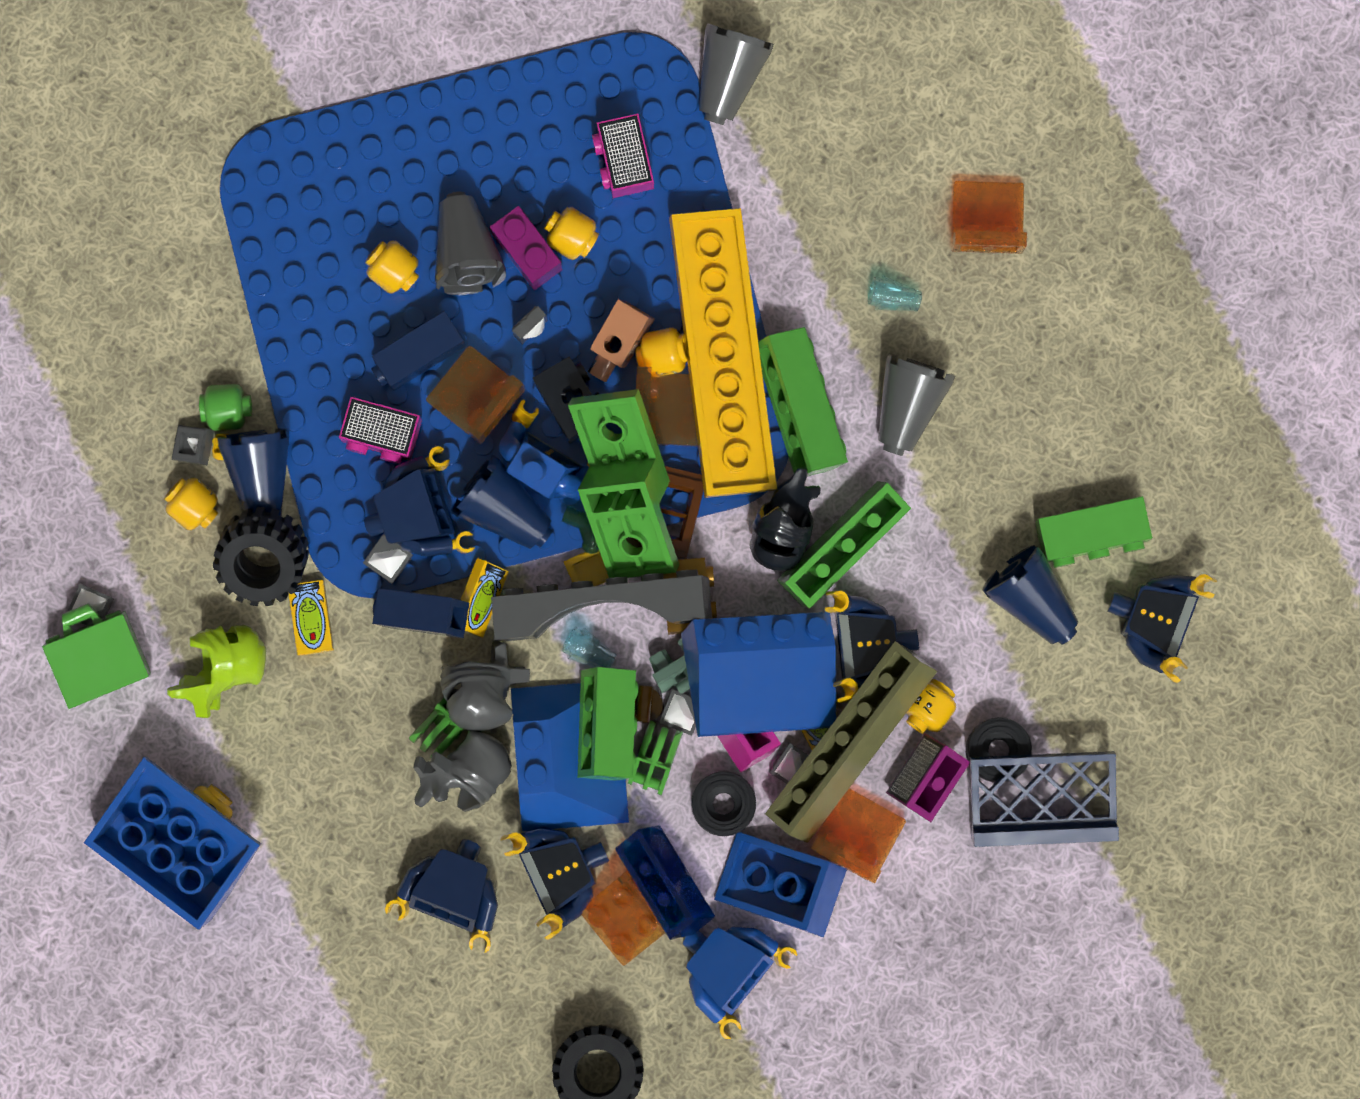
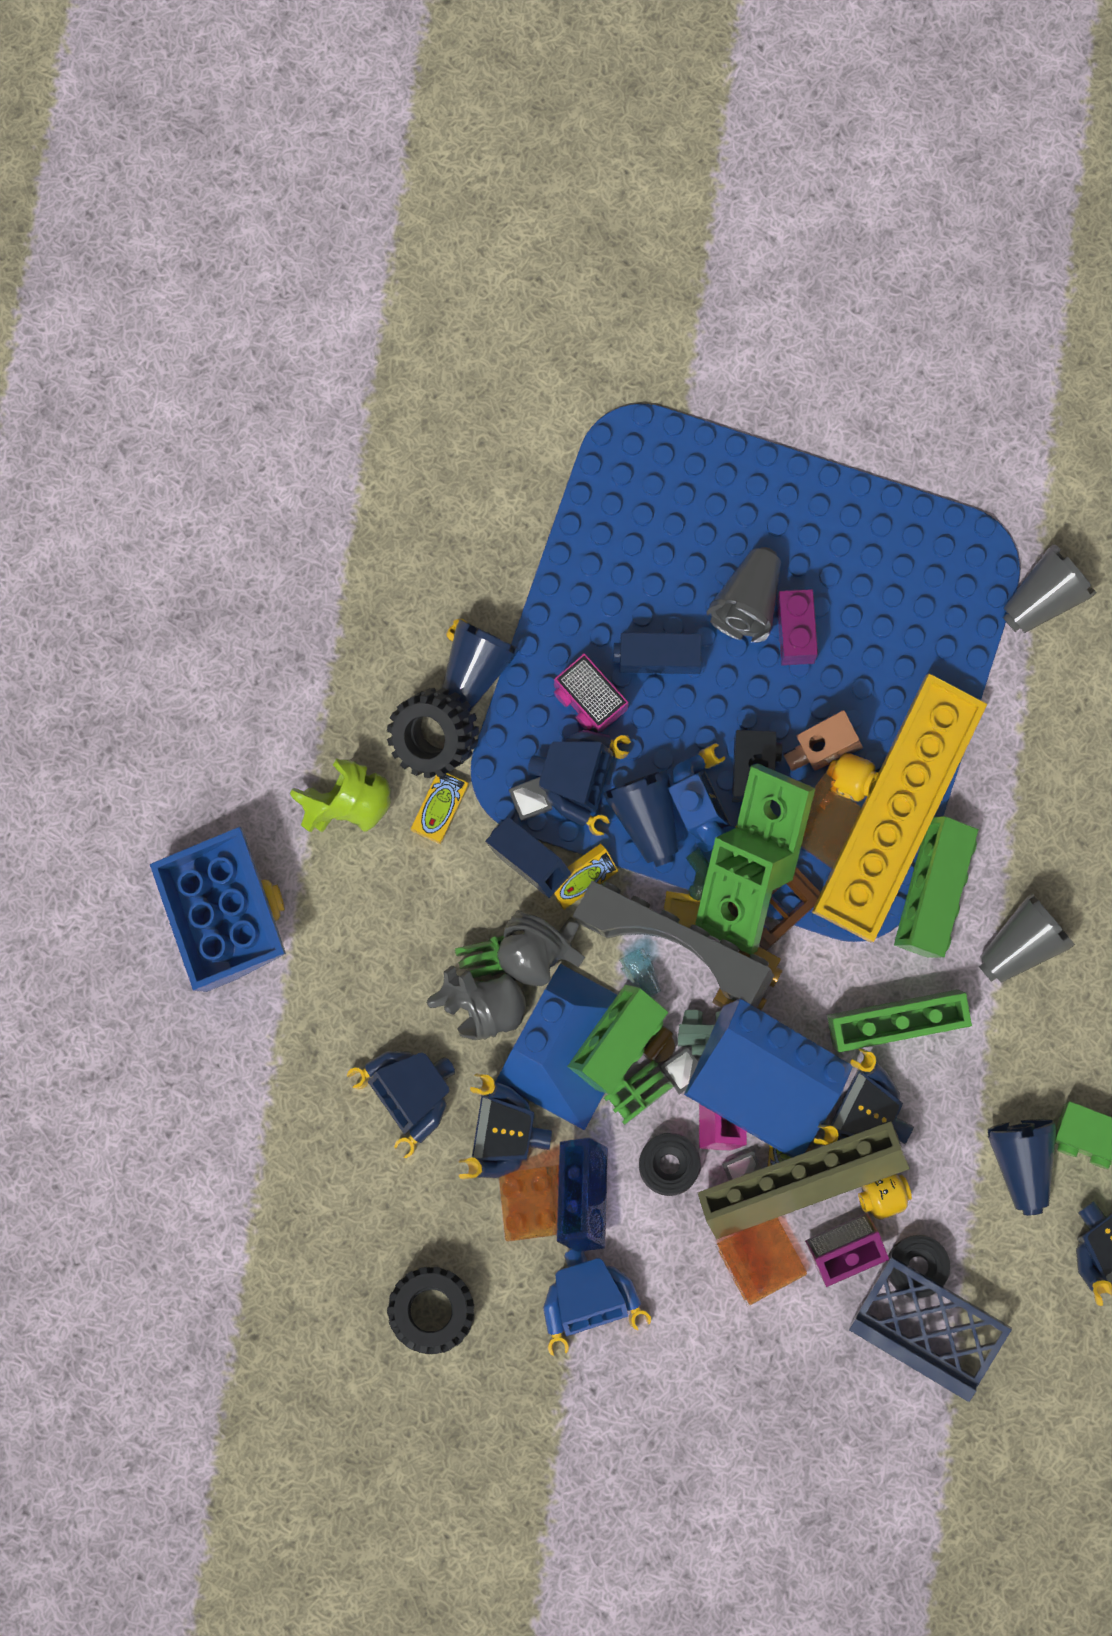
camera: 35 degrees right, 5 degrees down
(96, 656) = (254, 728): bright green piece -> none
(97, 600) = (274, 688): tile -> none
(191, 503) = (405, 658): yellow head -> none
(192, 445) = (436, 614): dark grey tile -> none
(224, 407) = (480, 601): bright green head -> none
(392, 267) = (682, 575): yellow head -> none
(475, 394) = (683, 715): clear orange bracket -> none
(530, 325) = (761, 689): dark grey tile -> none
(571, 233) = (840, 638): yellow head -> none
(624, 156) = (921, 605): brick -> none
(780, 884) = (673, 1258): blue slope -> none
(784, 524) = (861, 973): black piece -> none
(893, 295) = (1064, 850): clear light blue cone -> none

